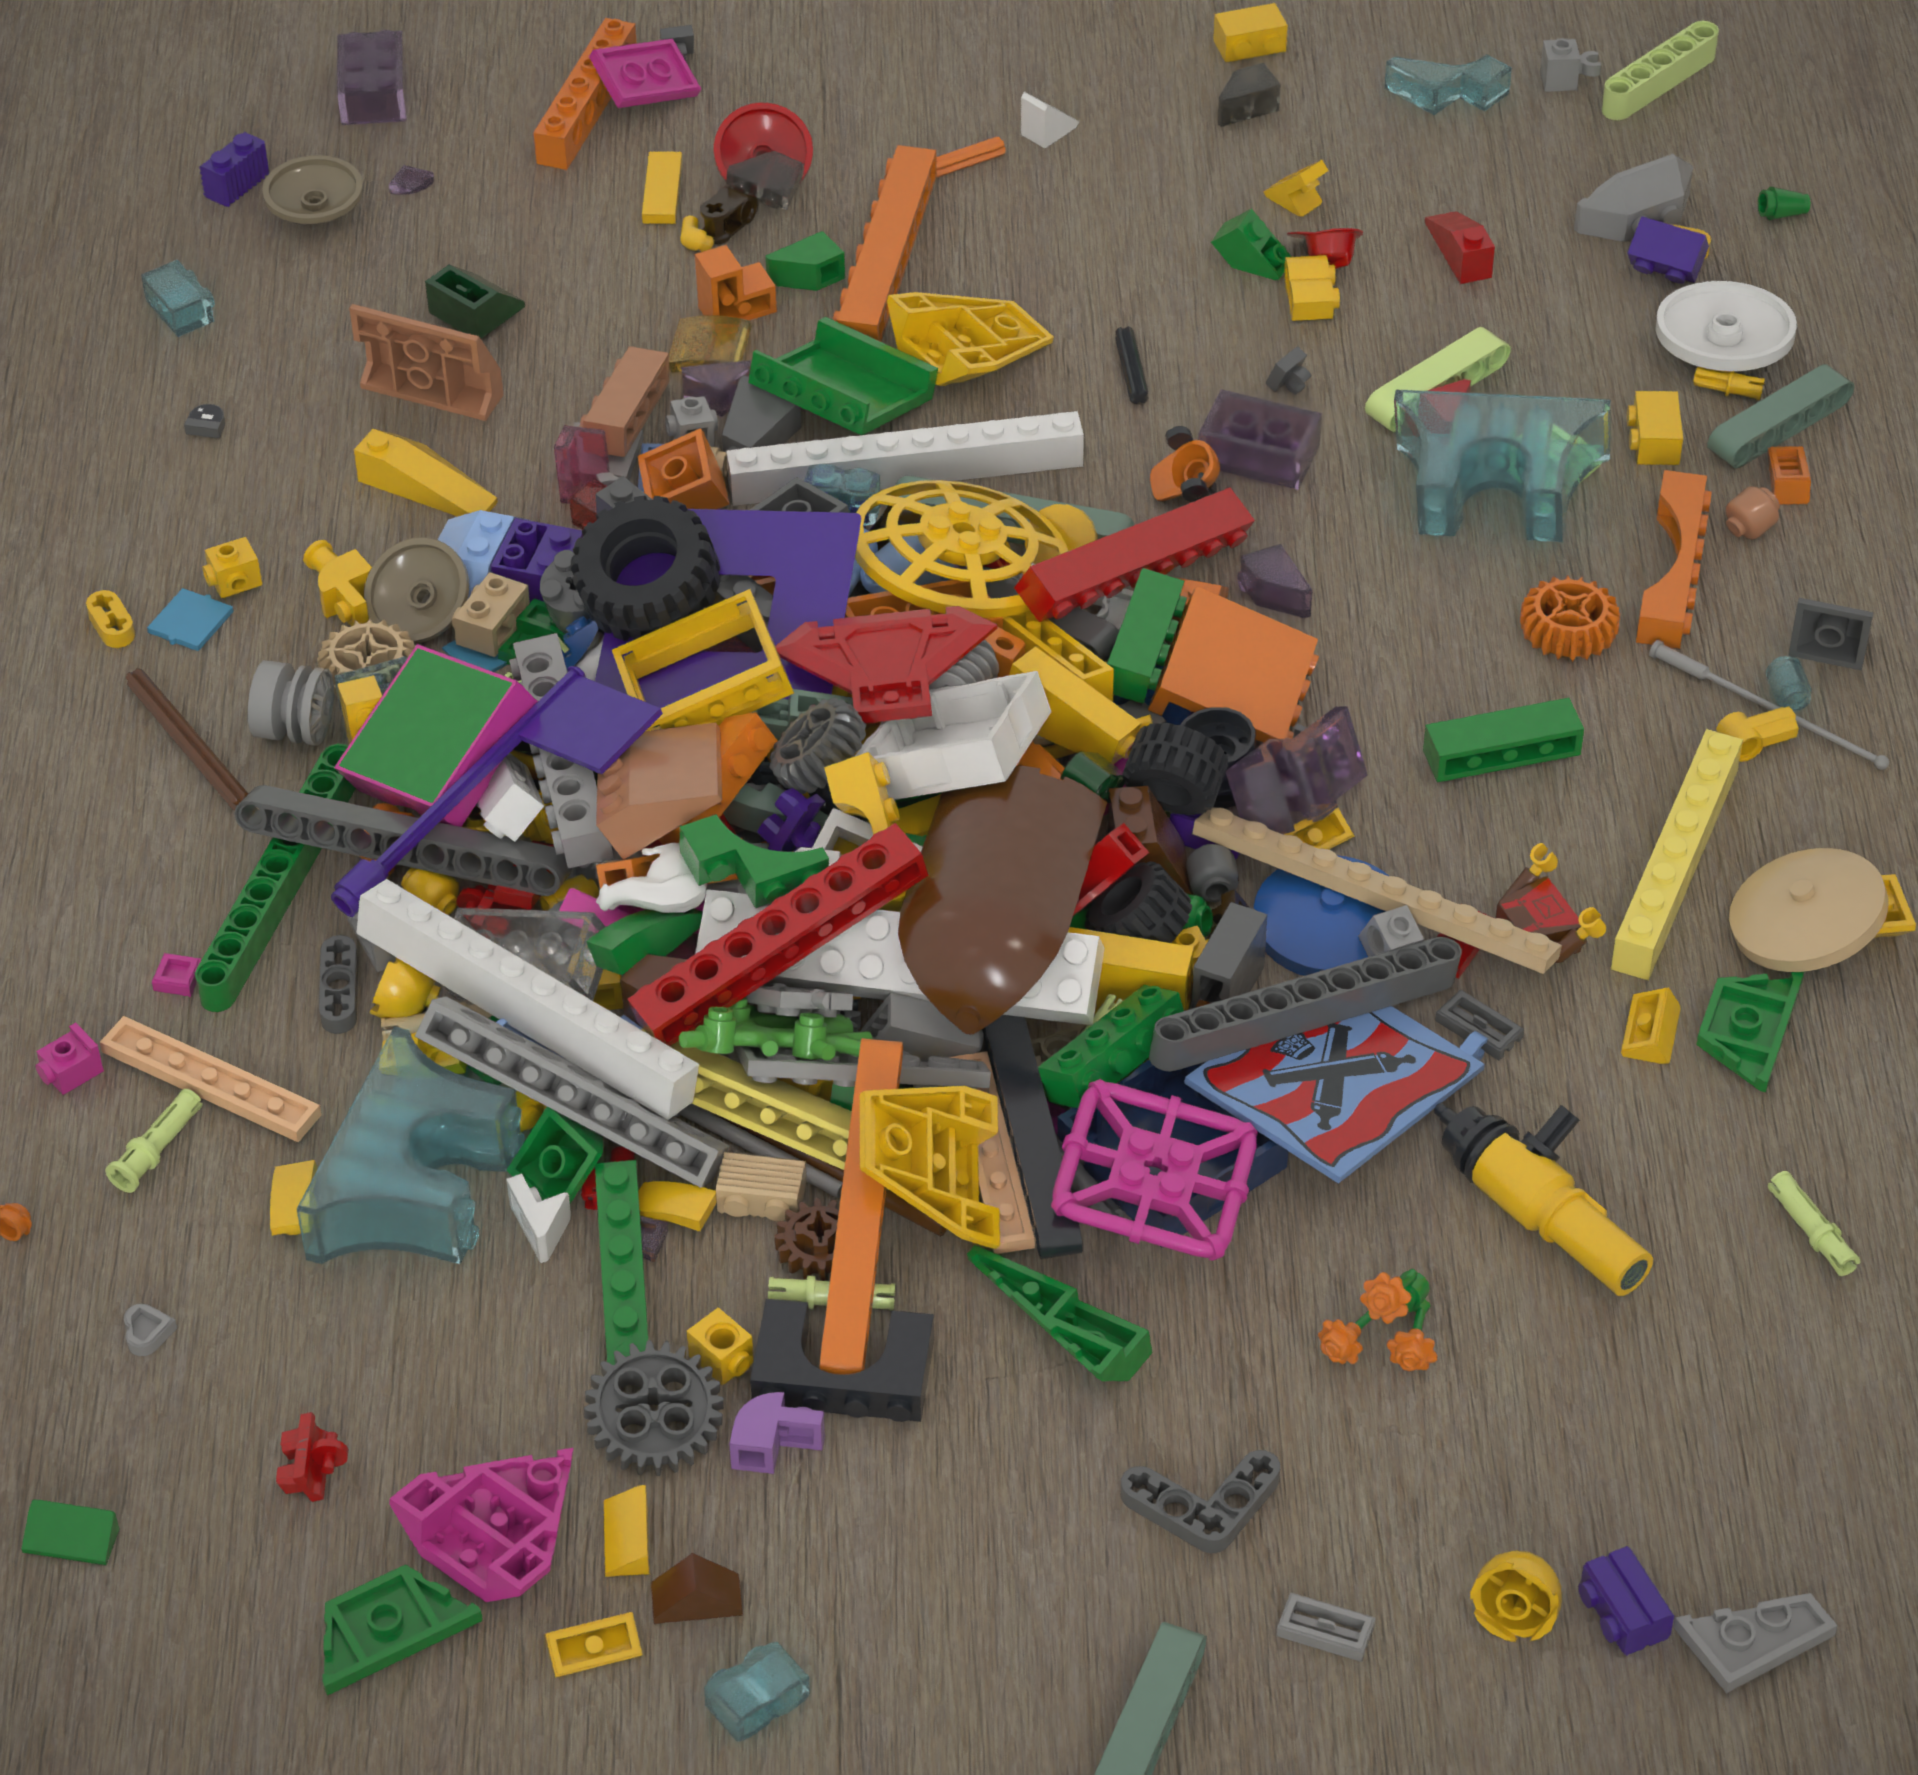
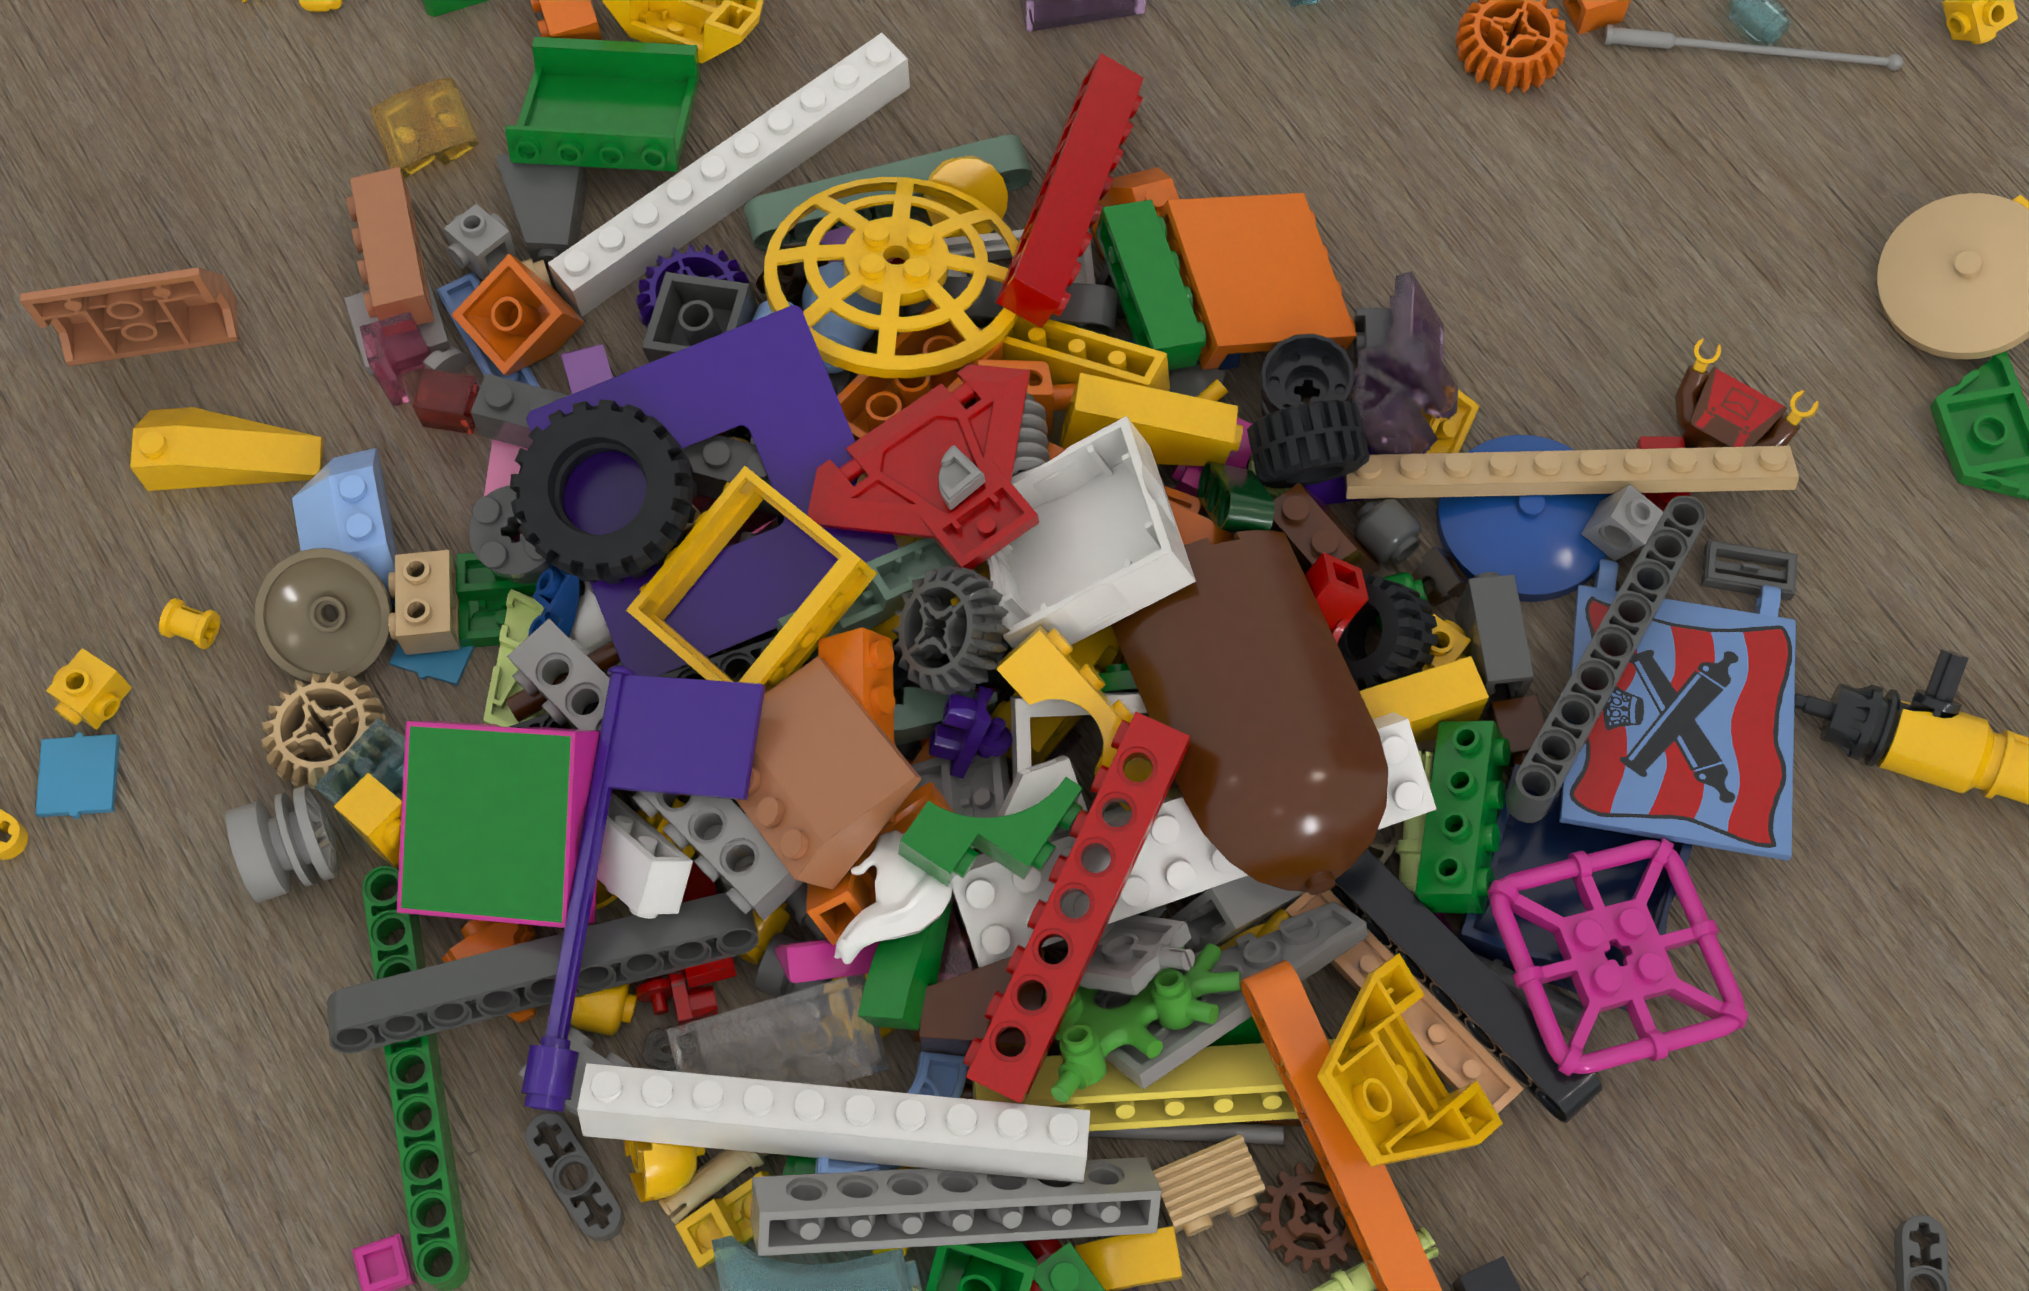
camera: 30 degrees left, 20 degrees up
(186, 737) = (184, 942): reddish brown axle -> none
(342, 587) = (230, 647): yellow brick -> none
(469, 301) = (125, 198): dark green slope -> none
(530, 550) = (428, 501): dark purple slope -> none
(715, 382) = (468, 177): slope -> none
(730, 289) = (407, 46): orange brick -> none
(848, 486) = (725, 255): clear light blue brick -> none
(892, 660) = (958, 477): none -> light grey tile
(1097, 1339) = (1652, 1175): green wedge -> none
(1187, 471) = (1031, 50): orange cap -> none
(1275, 582) = (1206, 139): clear purple slope -> none
(1387, 1300) = (1945, 990): orange plant -> none
(1503, 739) = (1552, 220): green brick -> none
(1651, 1026) = (1901, 484): yellow slope -> none
(1676, 855) = (1801, 272): light yellow brick -> none
(1759, 729) = (1766, 91): yellow piece -> none

